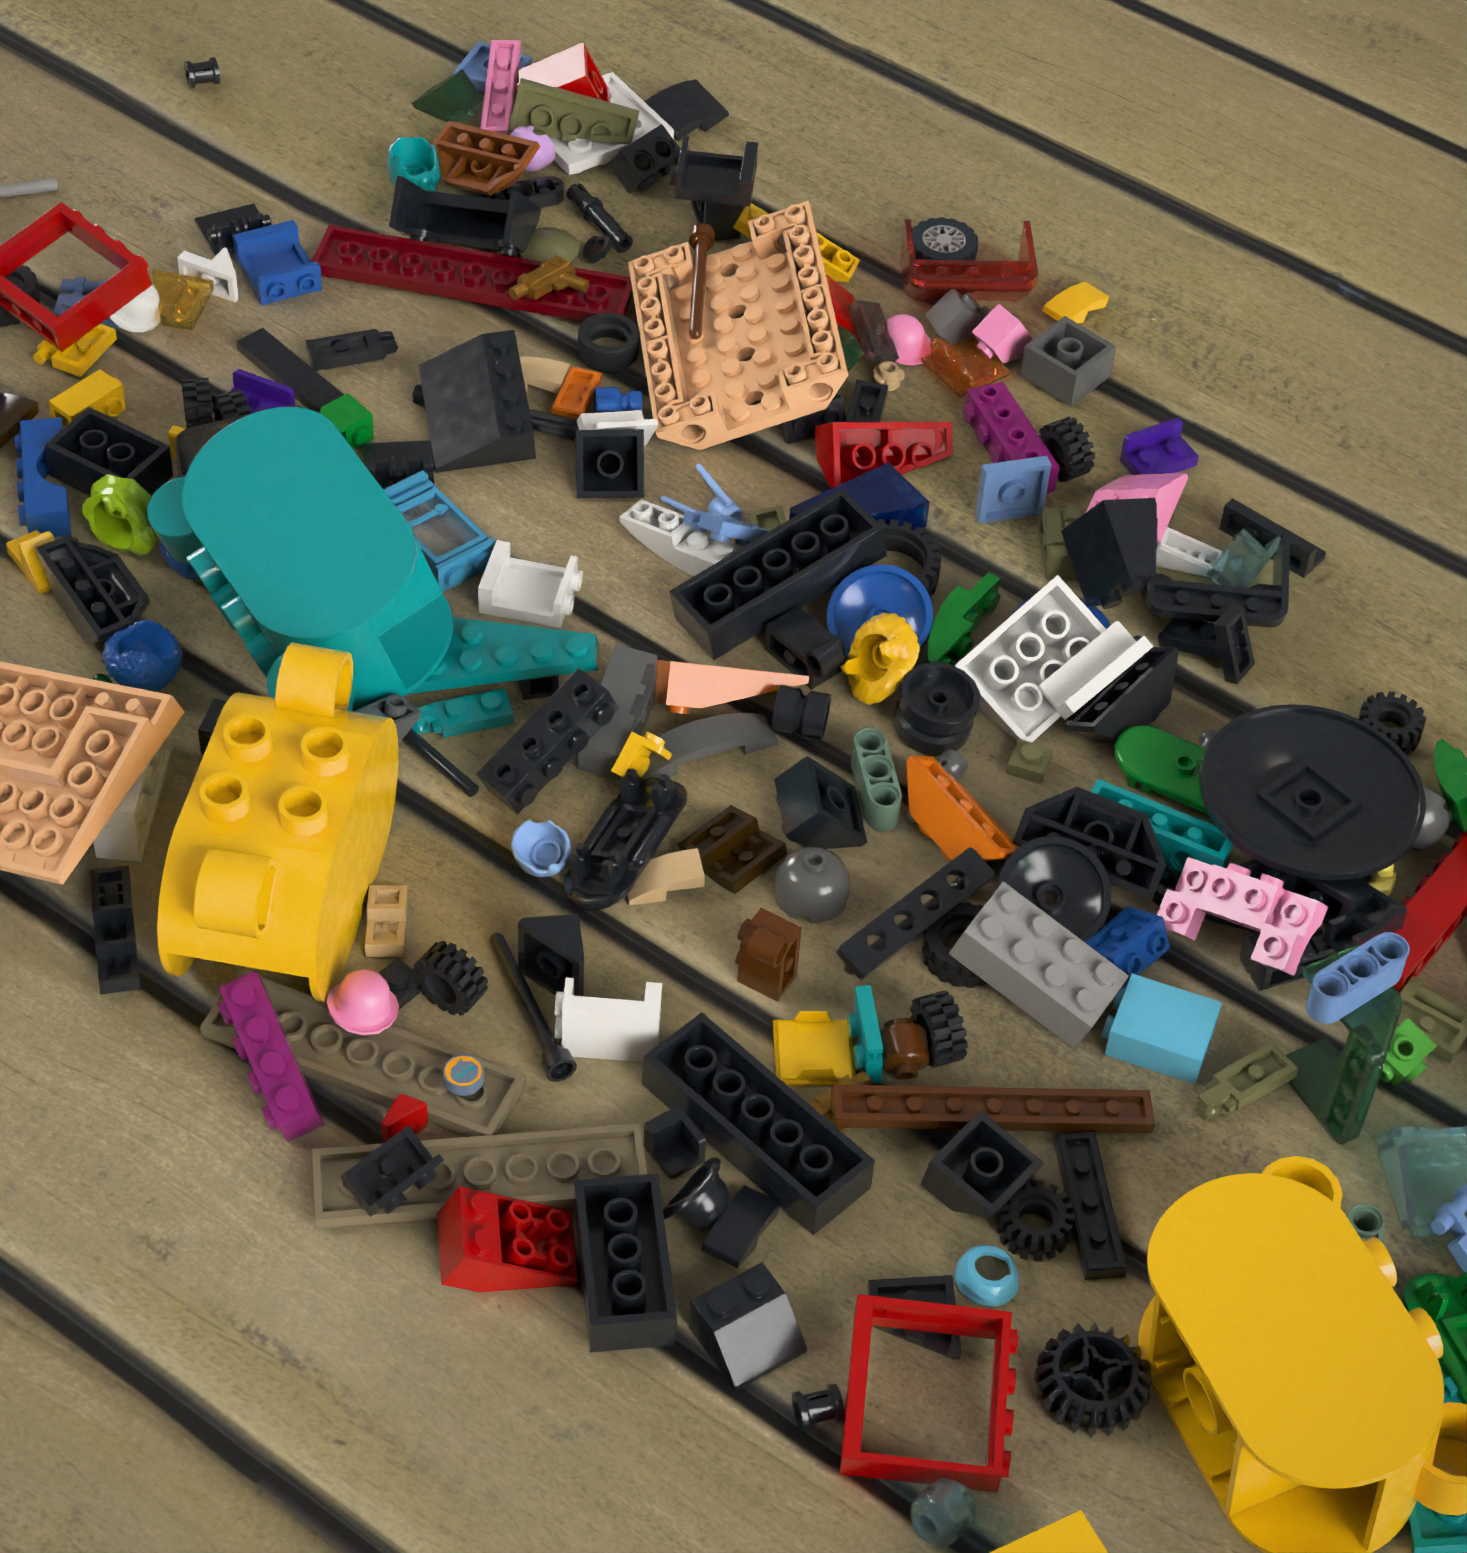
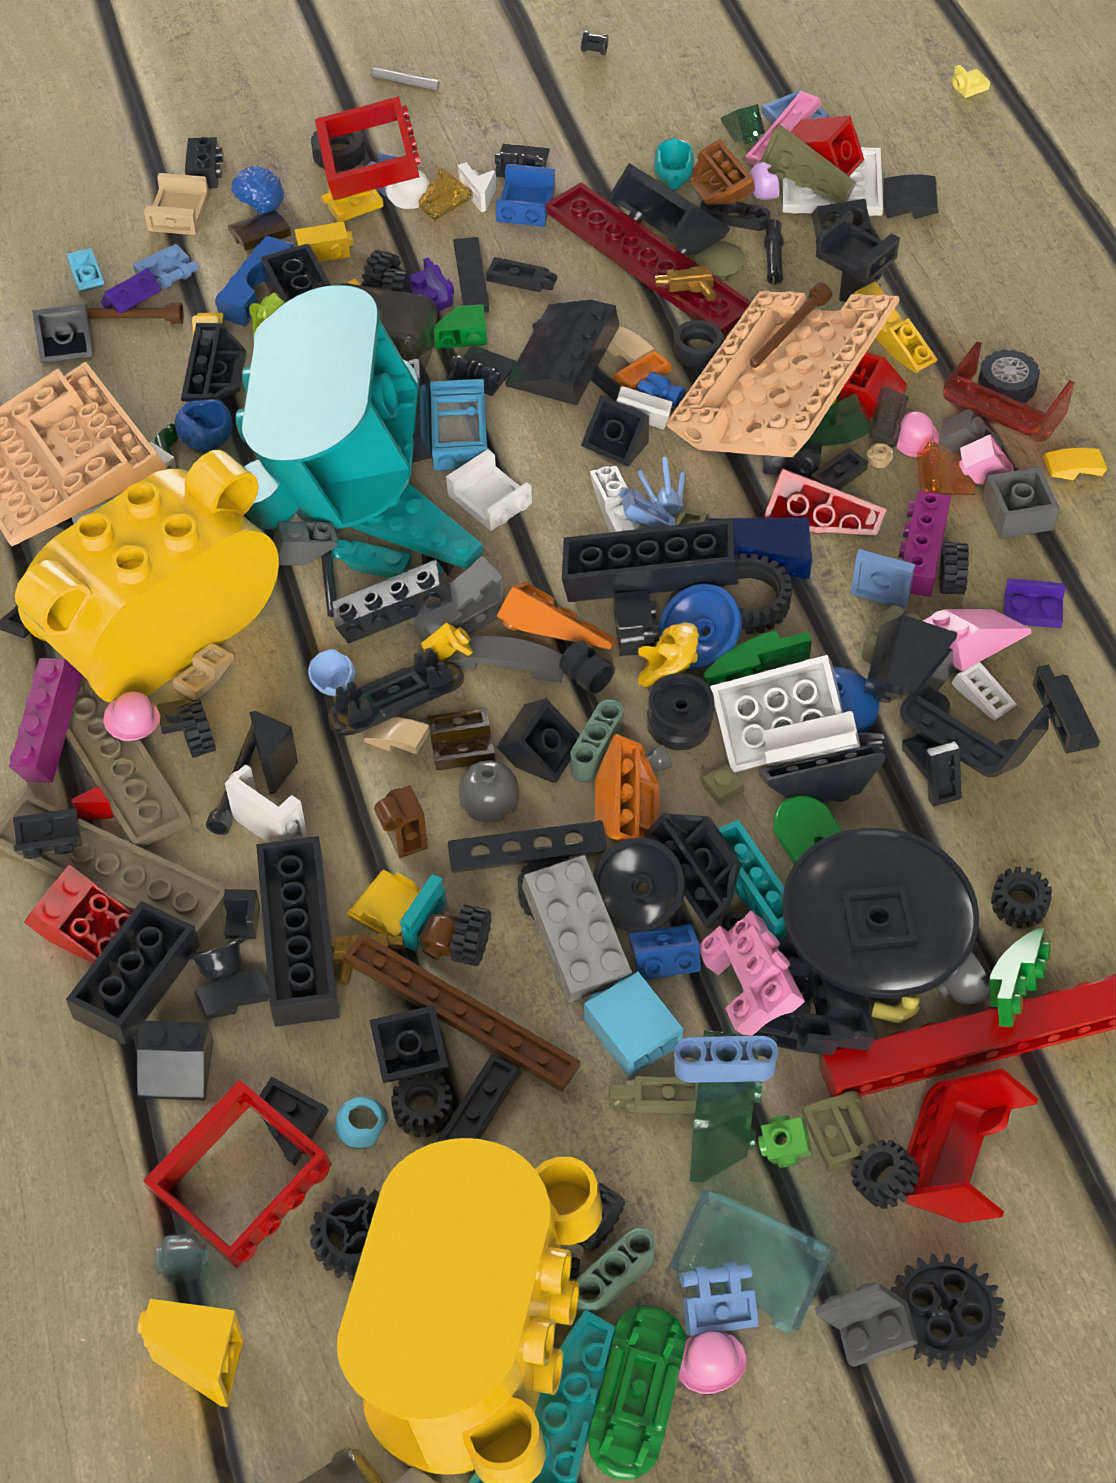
camera: 40 degrees right, 5 degrees up
(463, 1075) = (148, 795): sand blue tile -> none
(597, 248) = (752, 273): black piece -> none
(818, 1407) = (164, 1136): black bush -> none
(1241, 560) = (1014, 715): clear light blue panel -> none

